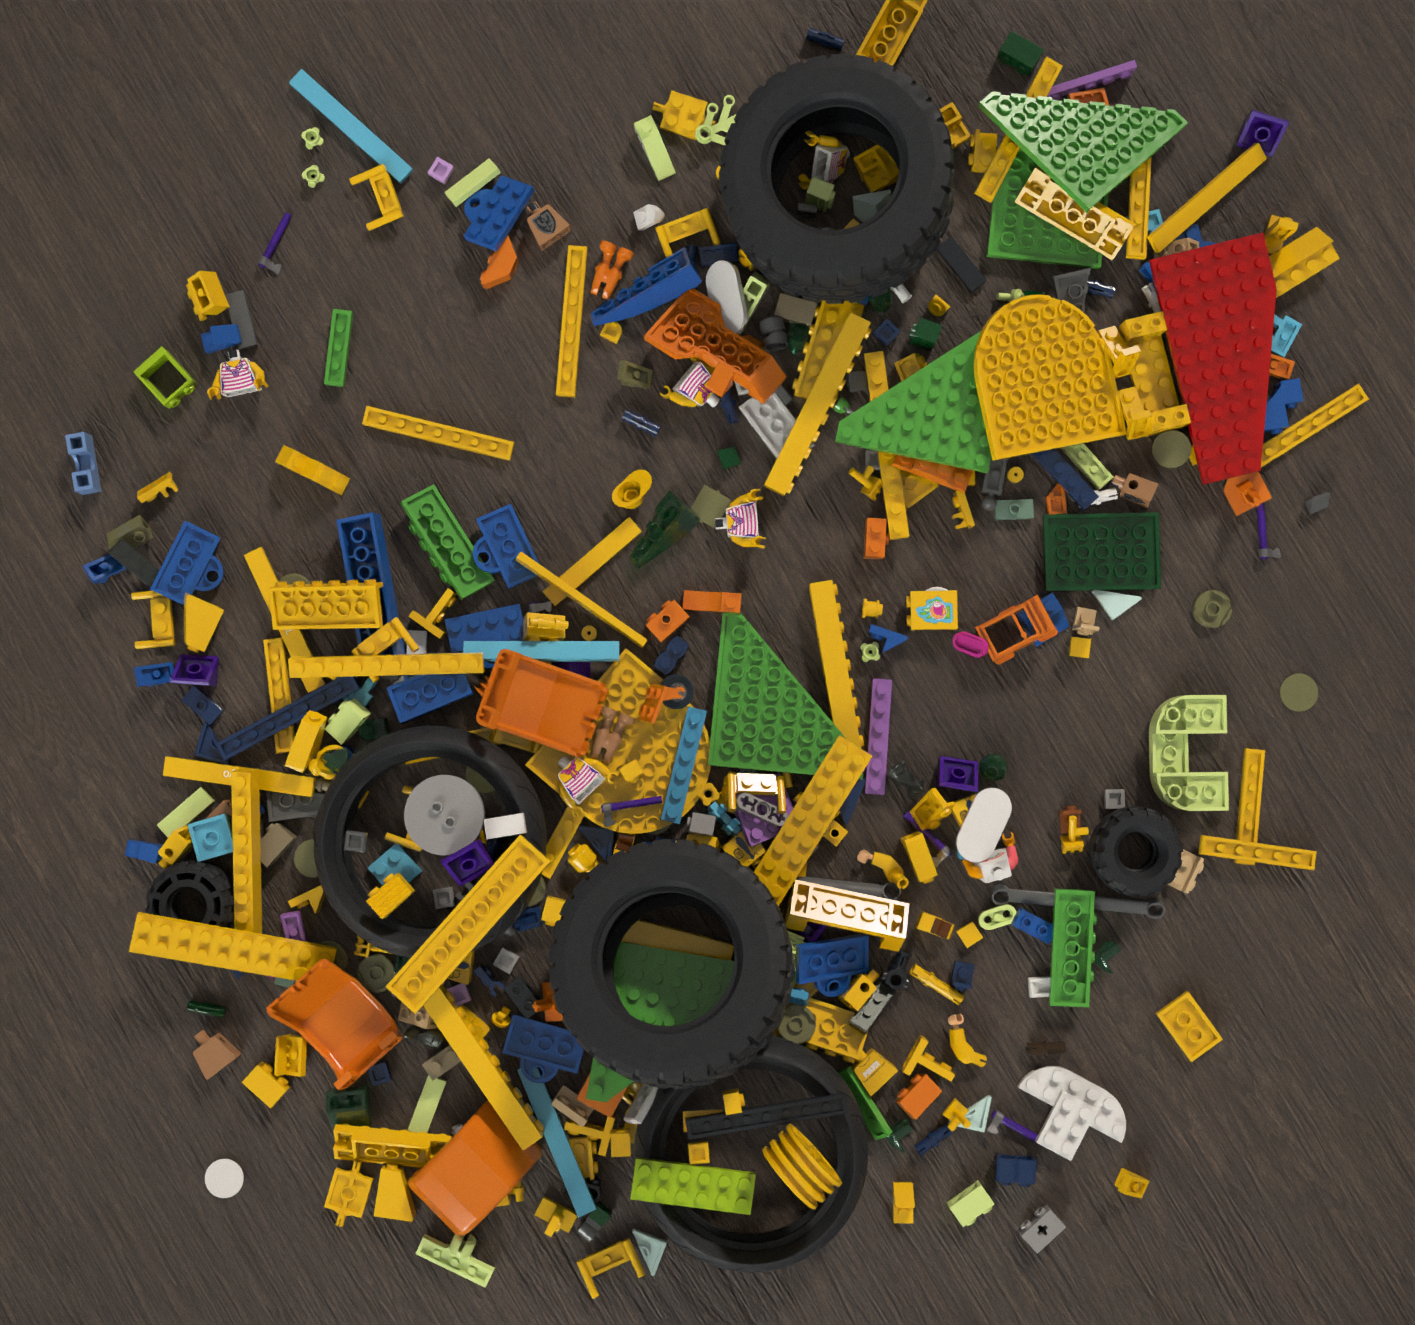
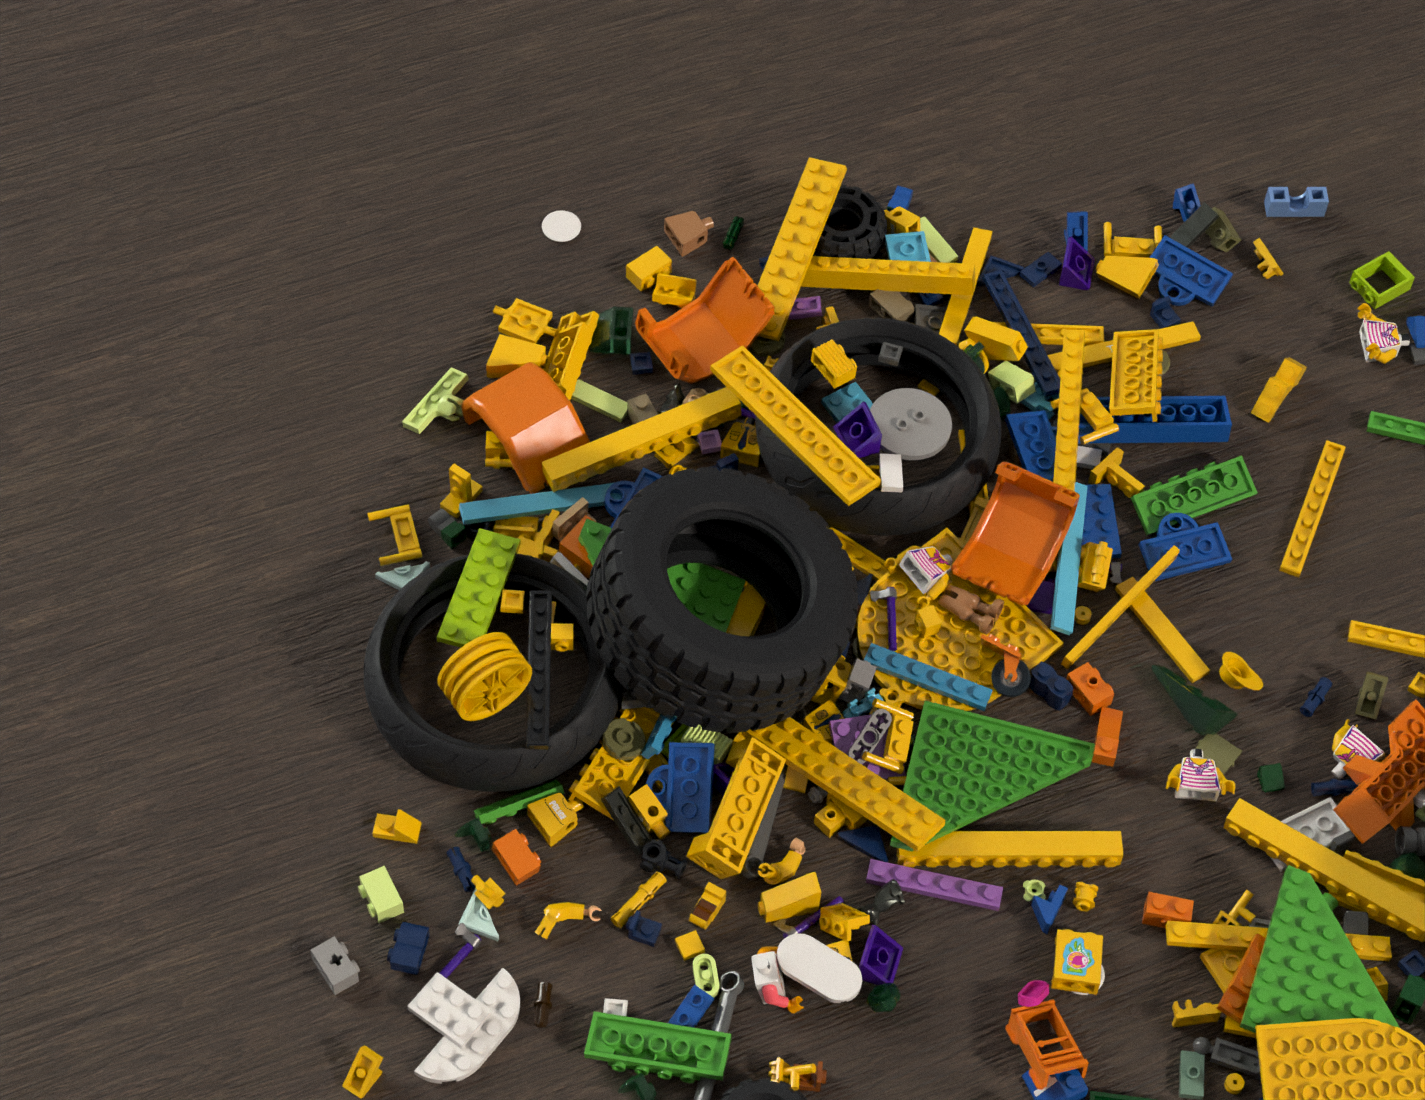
camera: 95 degrees right, 30 degrees down
(239, 582) = (1163, 313): none -> dark blue bracket
(926, 1060) = (559, 865): yellow bracket -> none

